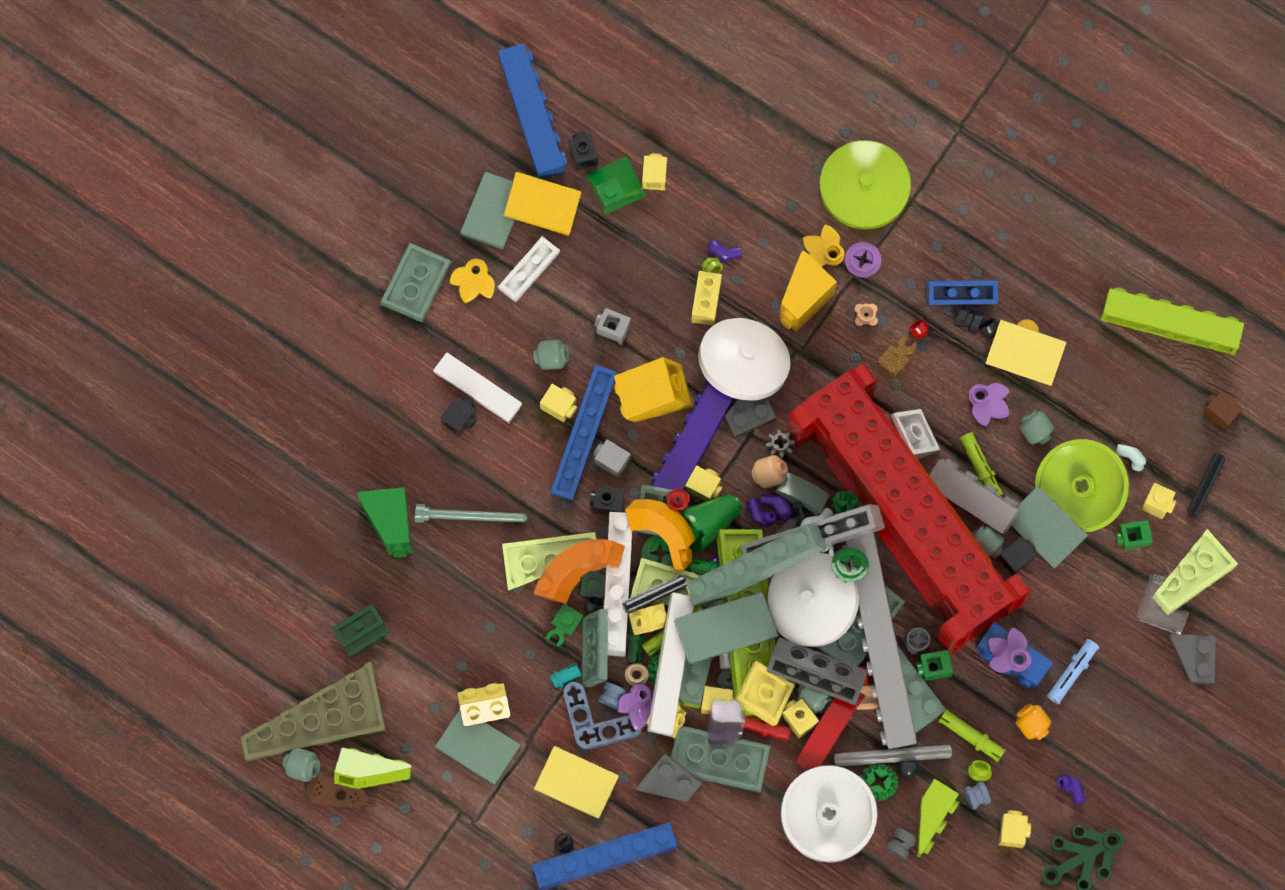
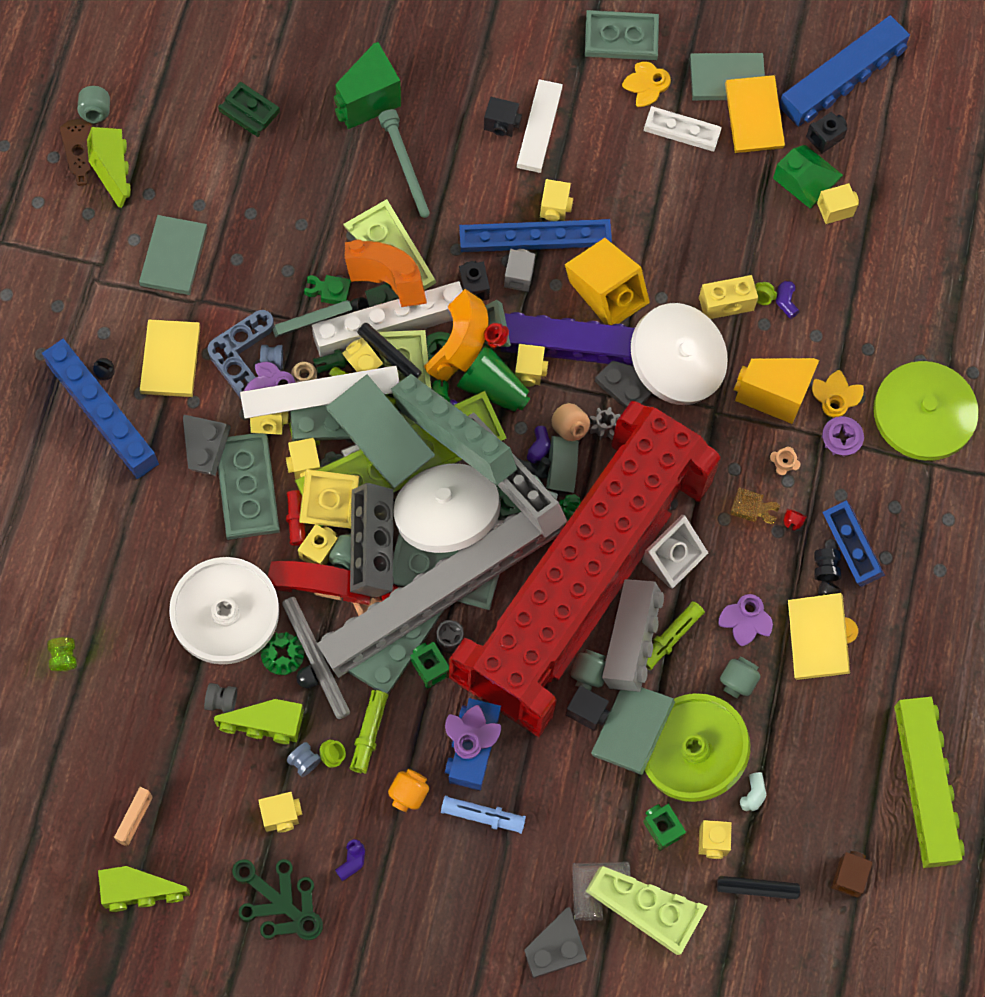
camera: 65 degrees right, 5 degrees down
(329, 716) = (152, 112): olive wing -> none
(483, 704) = (216, 241): light yellow bracket -> none
(551, 354) = (602, 176): sand green head -> none
(565, 675) = (276, 307): teal pin -> none
(611, 317) = (658, 222): light grey brick -> none
(725, 722) = (279, 467): brick -> none
(758, 516) = (520, 432): dark purple arm -> none
(843, 557) = (500, 514): green gear -> none

